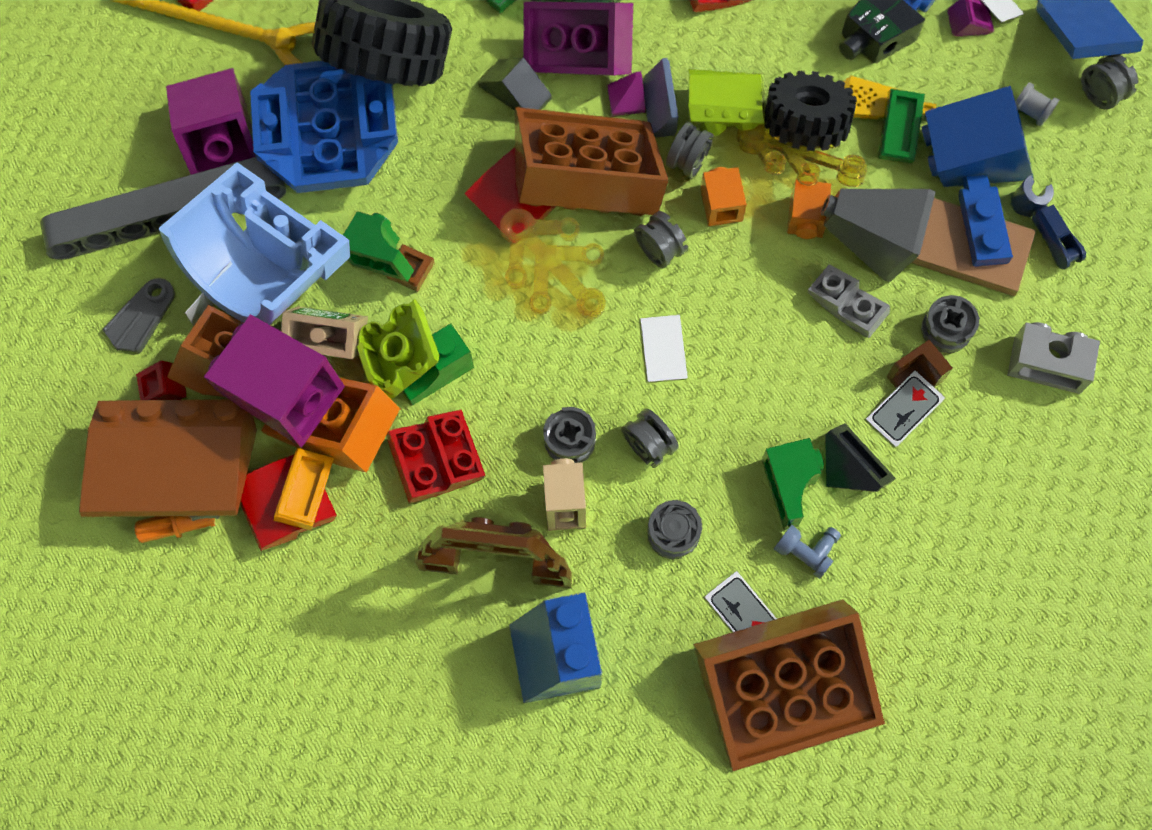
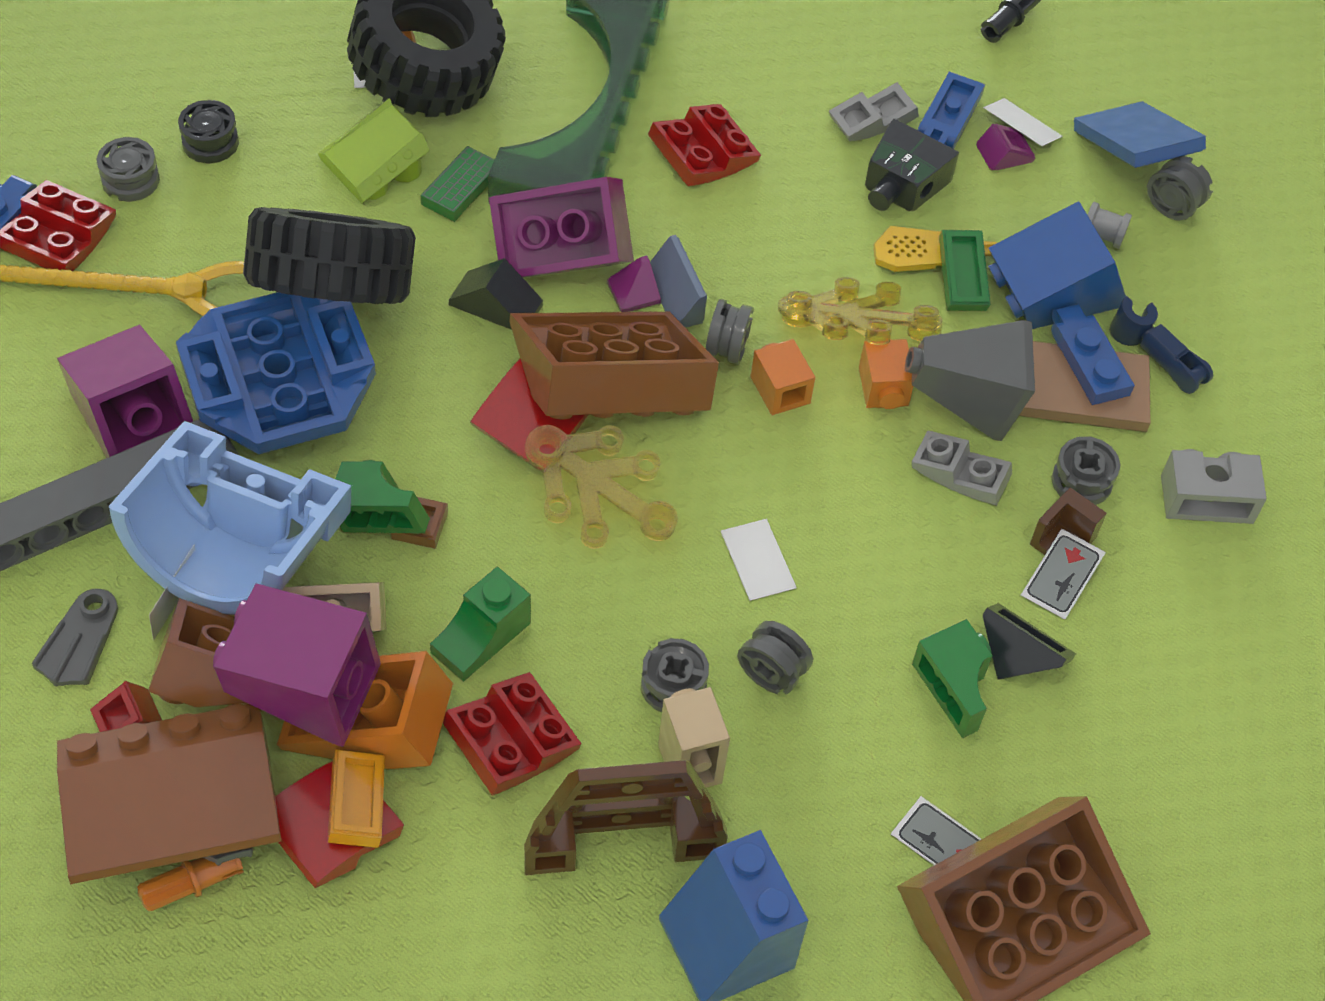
camera: 20 degrees left, 15 degrees down
(397, 350) = (439, 607): lime slope -> none
(660, 239) = (723, 434): dark grey wheel -> none
(674, 529) = (832, 761): dark grey wheel -> none
(725, 100) = (757, 270): lime slope -> none
(809, 110) = (857, 266): black tyre -> none
(814, 558) = (1009, 759): sand blue piece -> none

